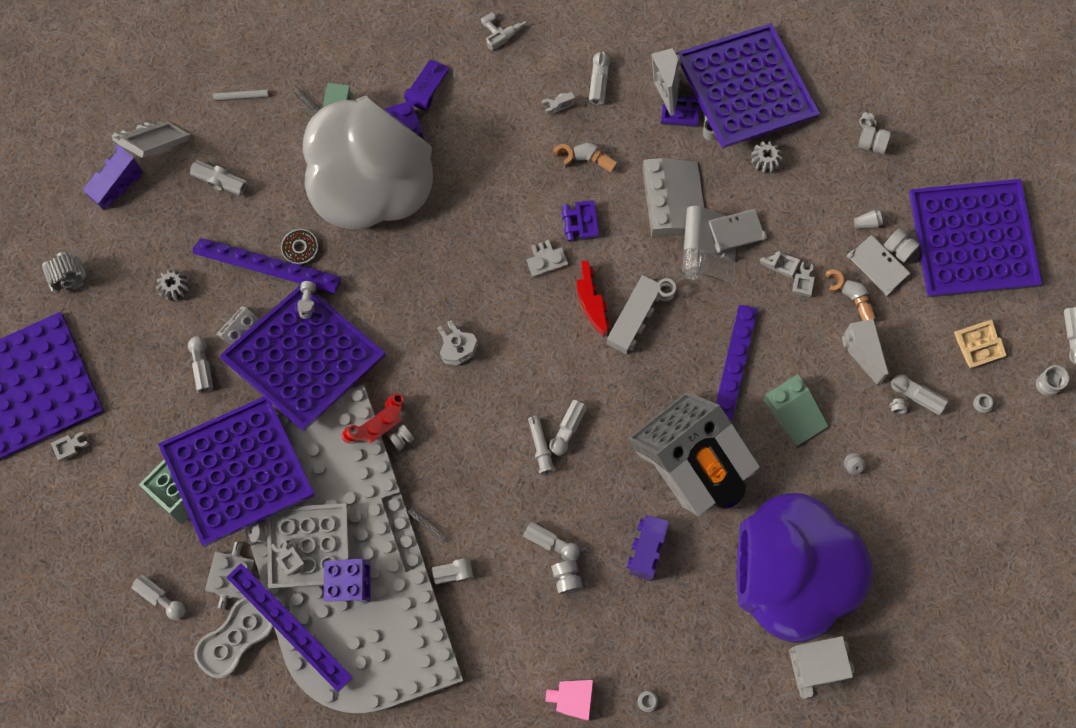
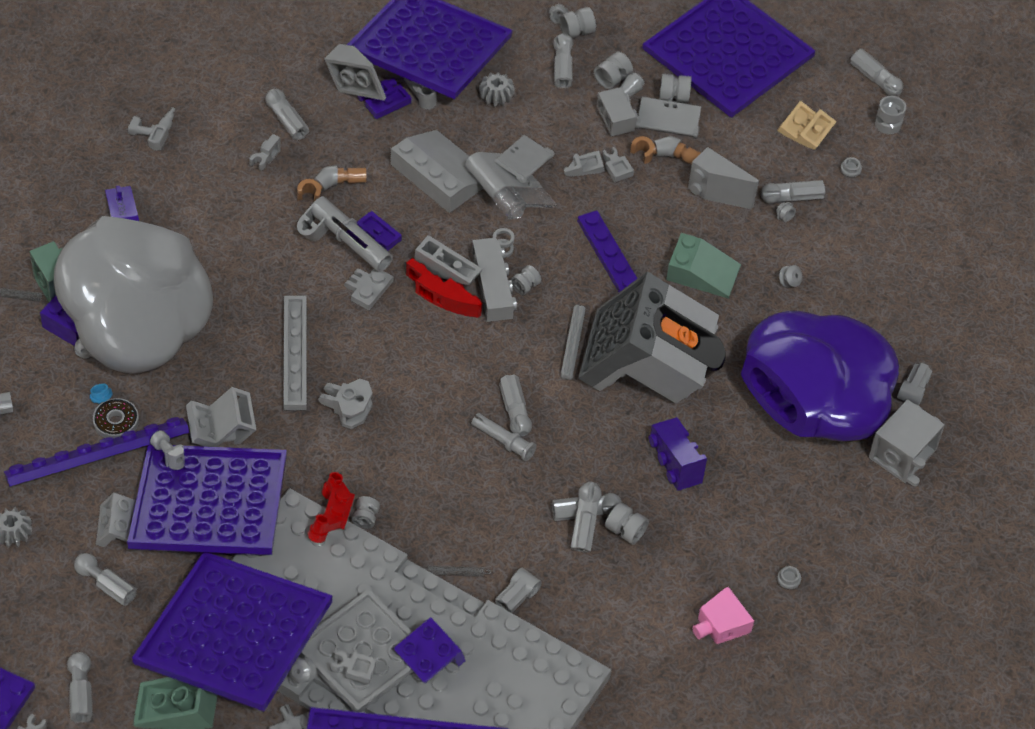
camera: 45 degrees left, 20 degrees down
(124, 436) = (80, 689): none -> light grey piece
(303, 221) = (100, 393): none -> dark azure plate
(362, 297) = (223, 420): none -> light grey piece
(453, 278) = (295, 353): none -> light grey plate
(534, 558) = (586, 517): none -> light grey piece
(558, 206) = (329, 219): none -> light grey piece
(609, 281) = (446, 262): none -> light grey slope
(651, 404) = (573, 342): none -> light grey axle
(655, 331) = (528, 278): none -> light grey wheel
(836, 165) = (563, 61): none -> light grey piece
(839, 236) = (616, 111): none -> light grey brick
(867, 198) = (613, 70): none -> light grey wheel
(868, 621) = (914, 387): none -> light grey piece

